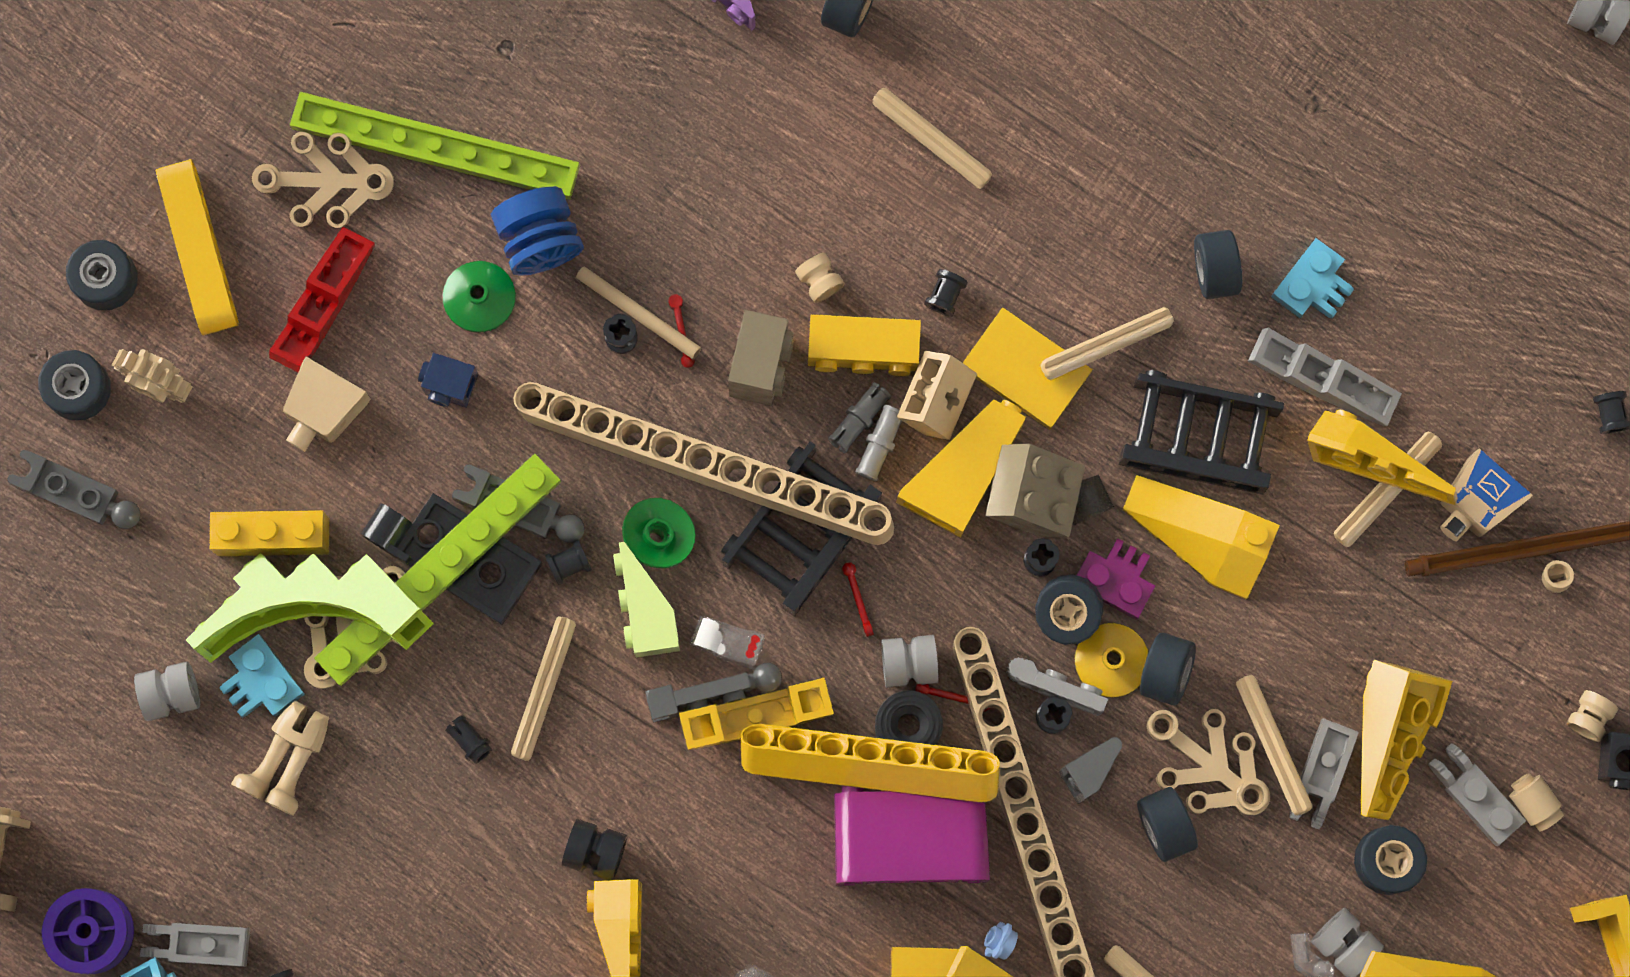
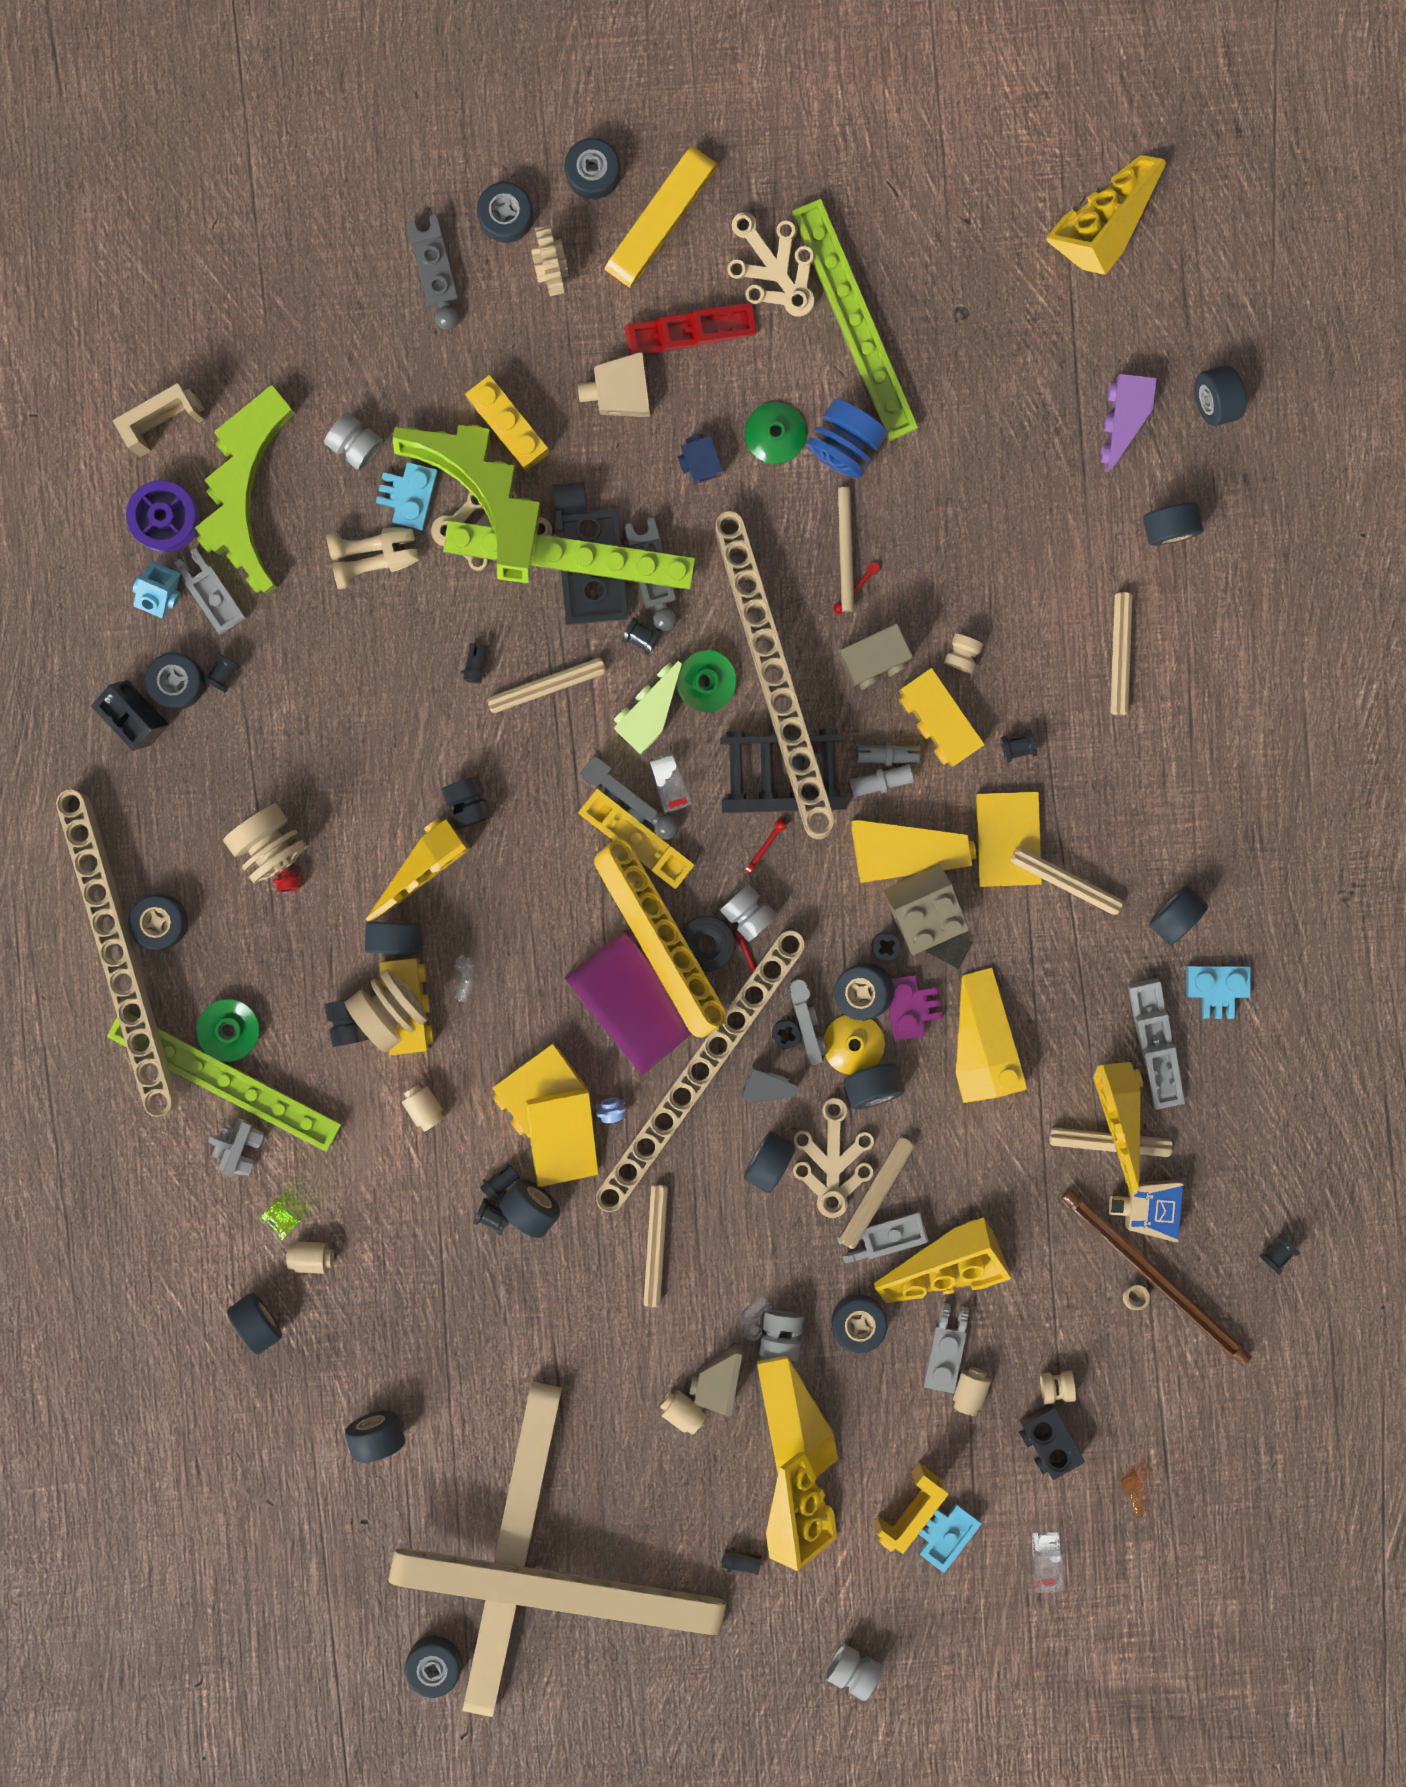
camera: 55 degrees right, 10 degrees up
(81, 792) = (230, 527): none -> lime arch
(627, 341) = (818, 558): black bush -> none
(937, 395) = (942, 794): tan brick -> none
(1213, 467) = (1036, 1015): black fence -> none

